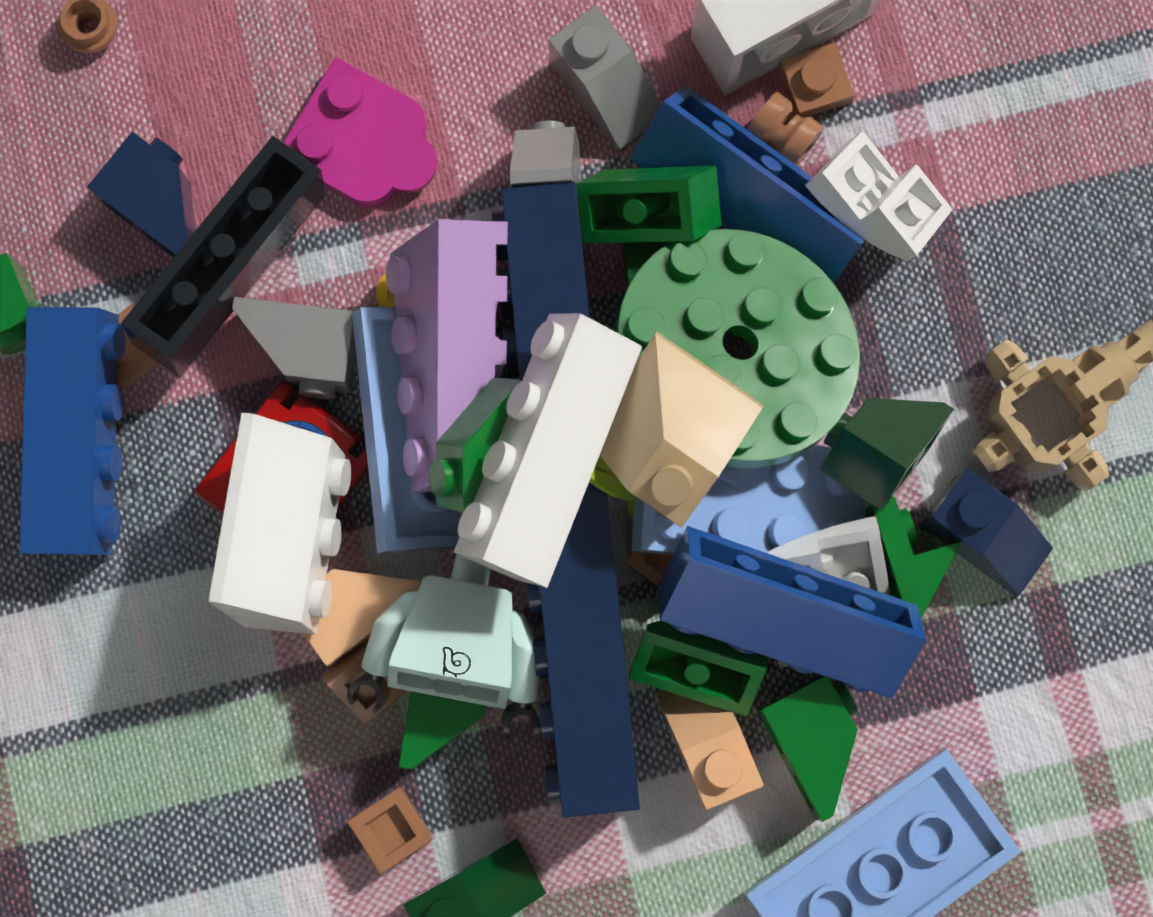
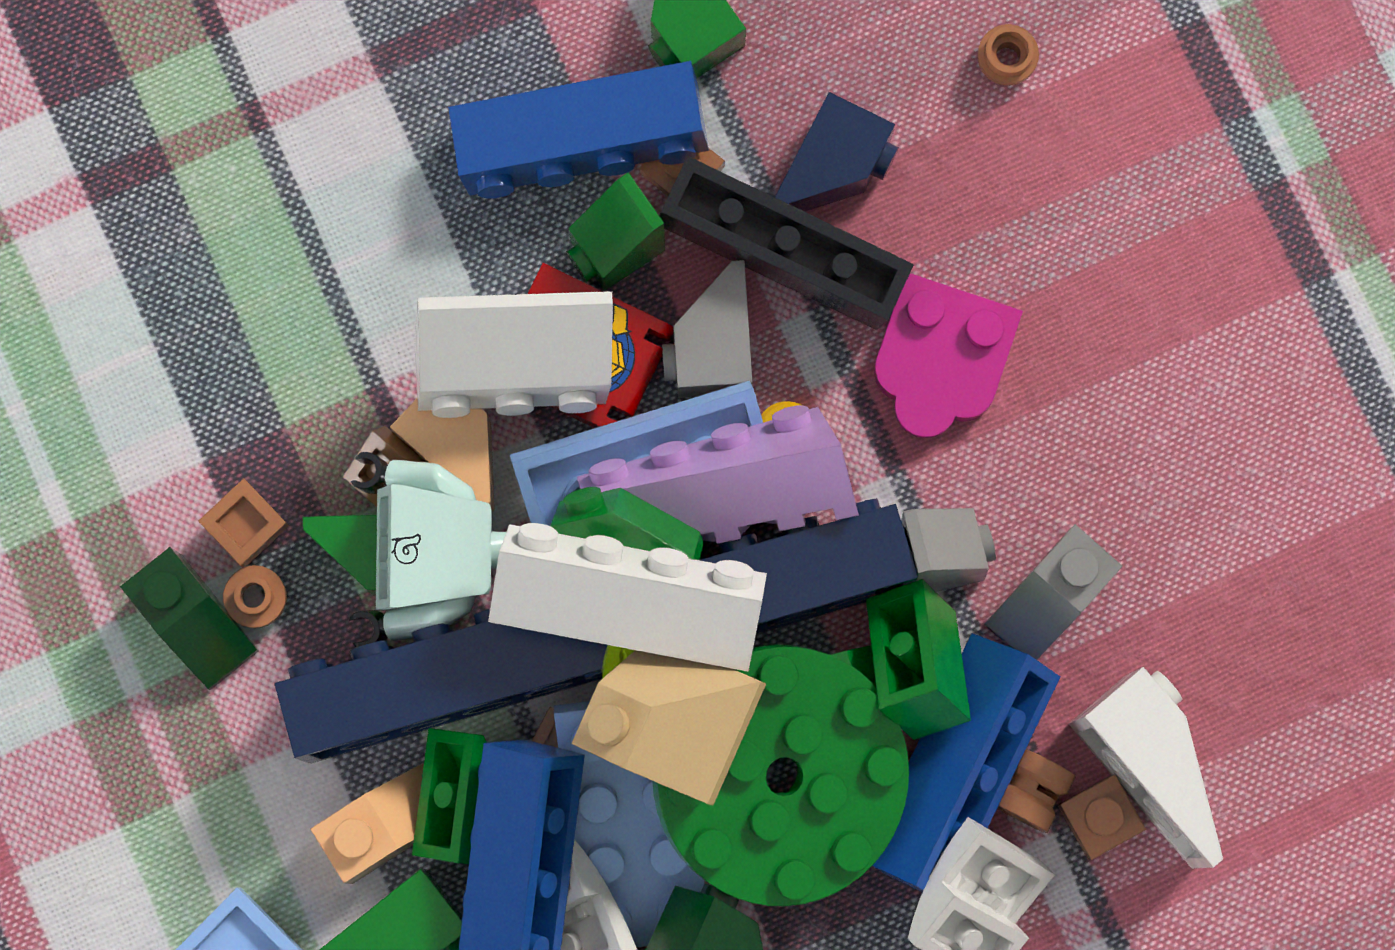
camera: 80 degrees right, 0 degrees up
(181, 413) = (616, 234): none -> green slope
(479, 816) = (271, 607): none -> nougat plate

